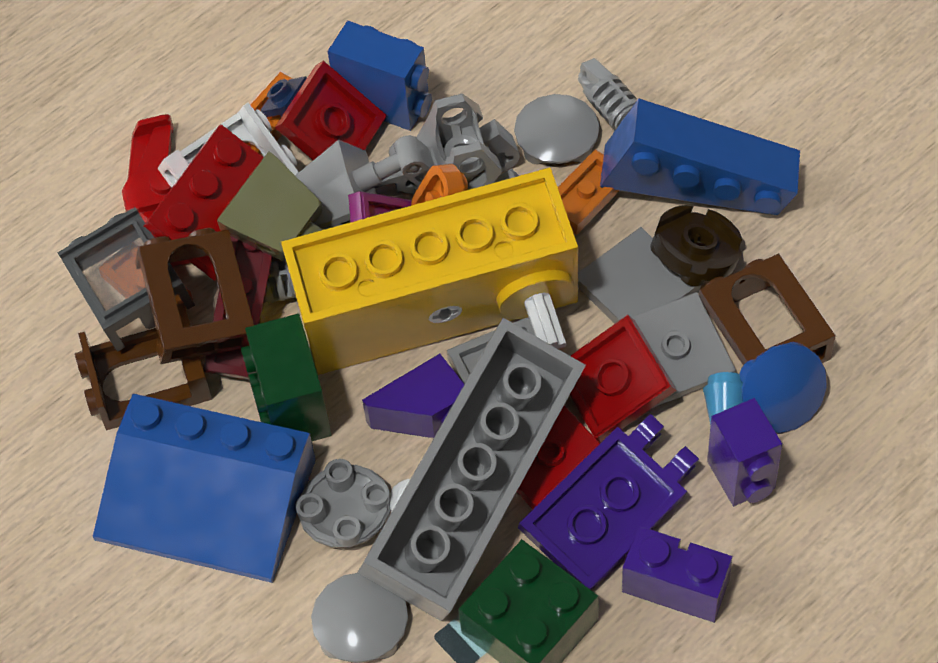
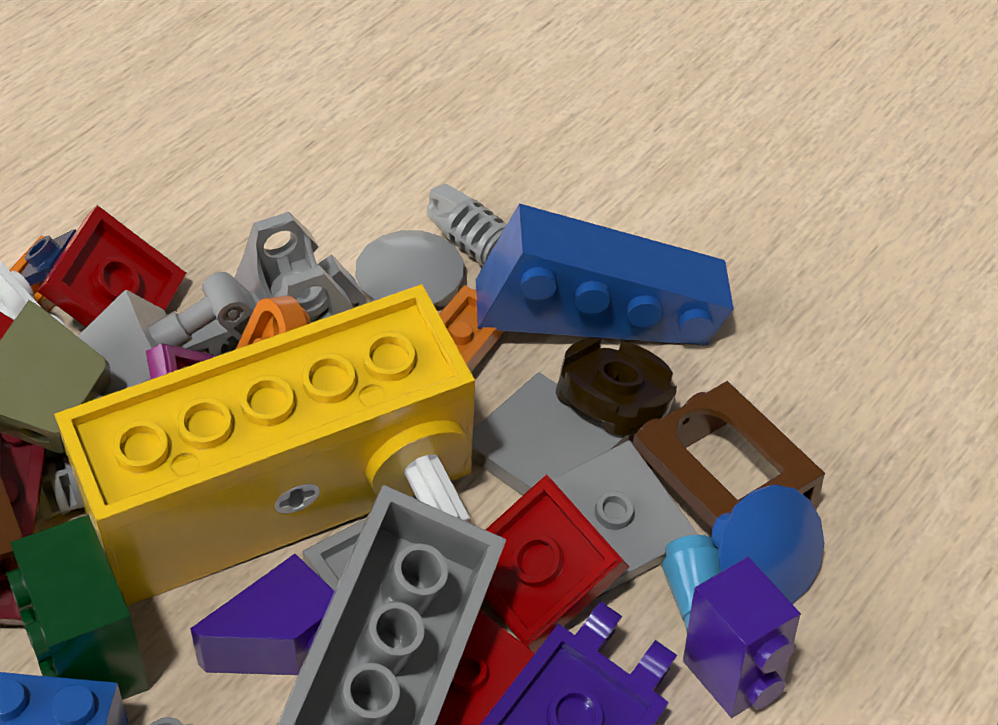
camera: 15 degrees left, 10 degrees down
(385, 71) = (178, 212): blue brick -> none

